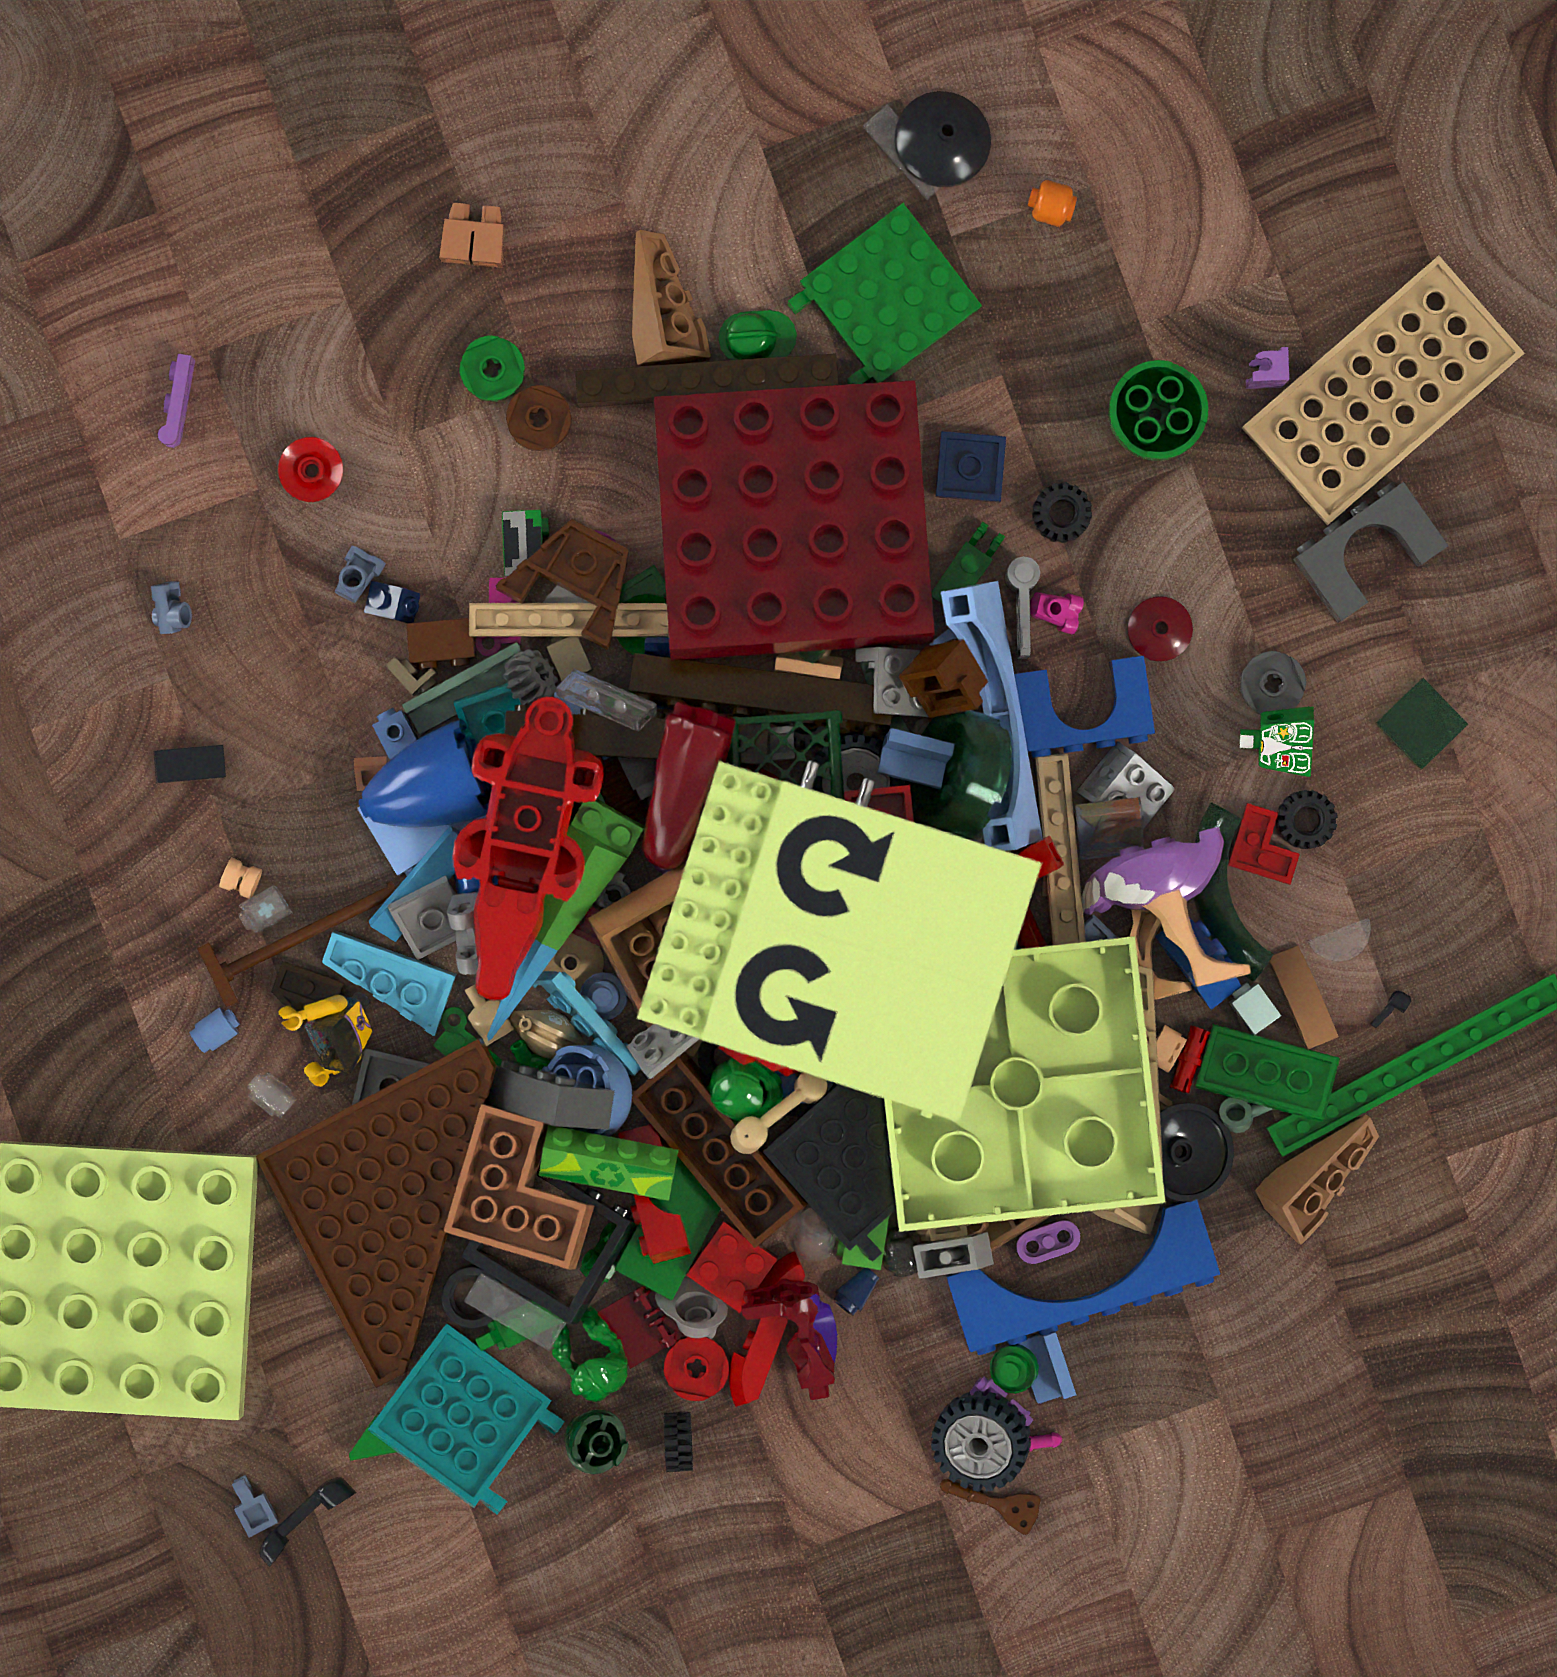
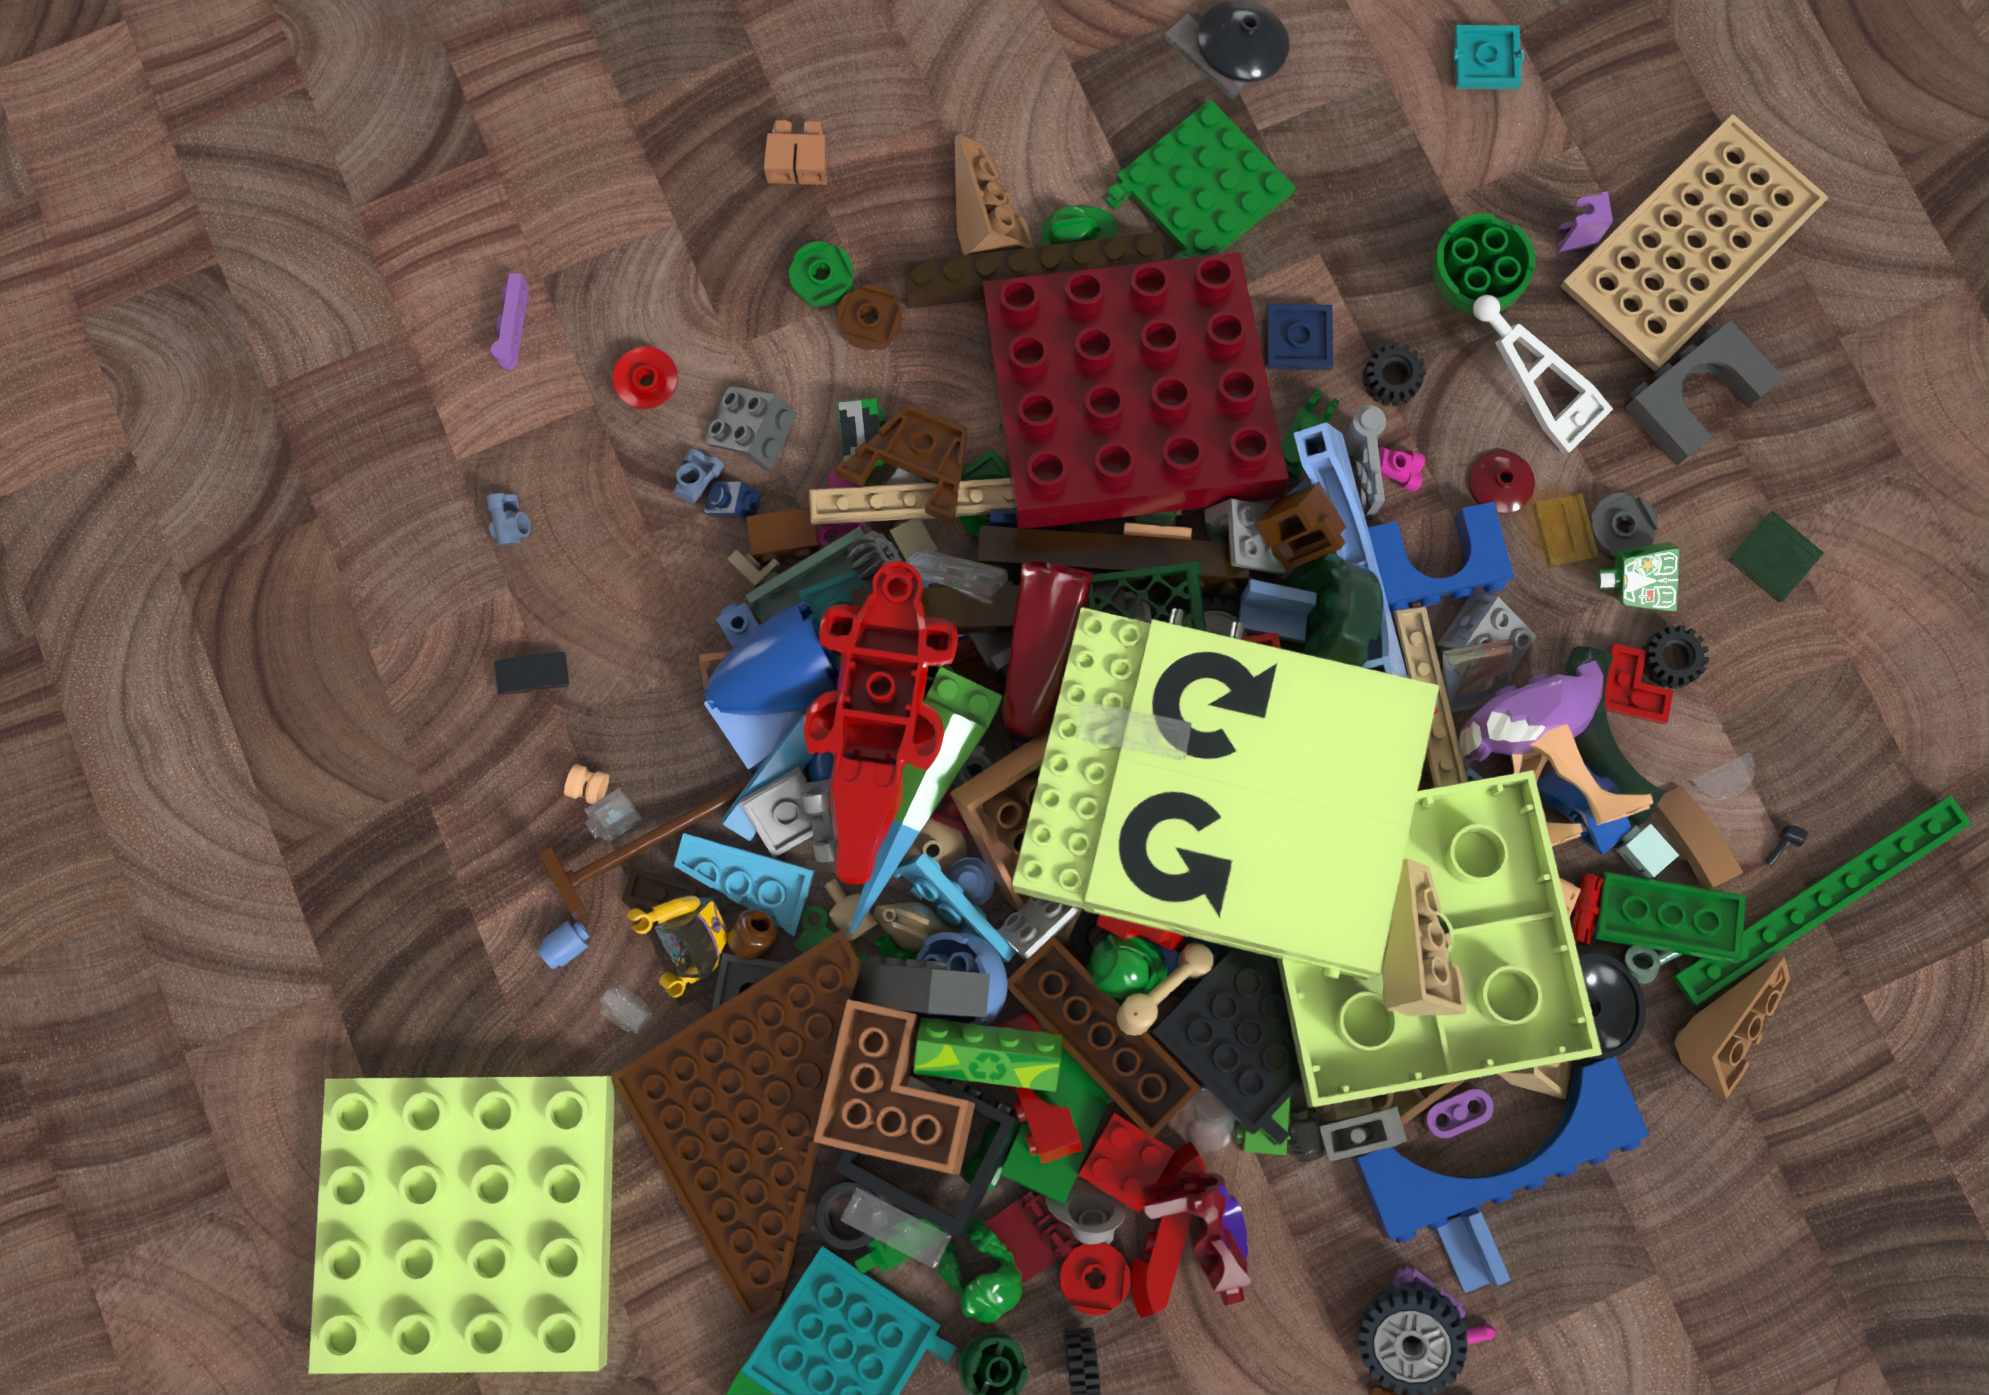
camera: 10 degrees left, 10 degrees down
(394, 1033) = (752, 934): none -> reddish brown head
(413, 525) = (751, 425): none -> dark grey bracket
(756, 886) = (1133, 731): none -> clear tile
(856, 1291) = (1259, 1181): dark blue cone -> none
(1006, 1106) = (1417, 962): none -> tan wedge
(1014, 1368) = (1438, 1255): green plate -> none
(1052, 203) = (1355, 89): orange head -> none
(1194, 173) = (1487, 57): none -> teal plate
(1214, 685) = (1565, 530): none -> clear yellow plate
(1237, 572) = (1580, 414): none -> white plate

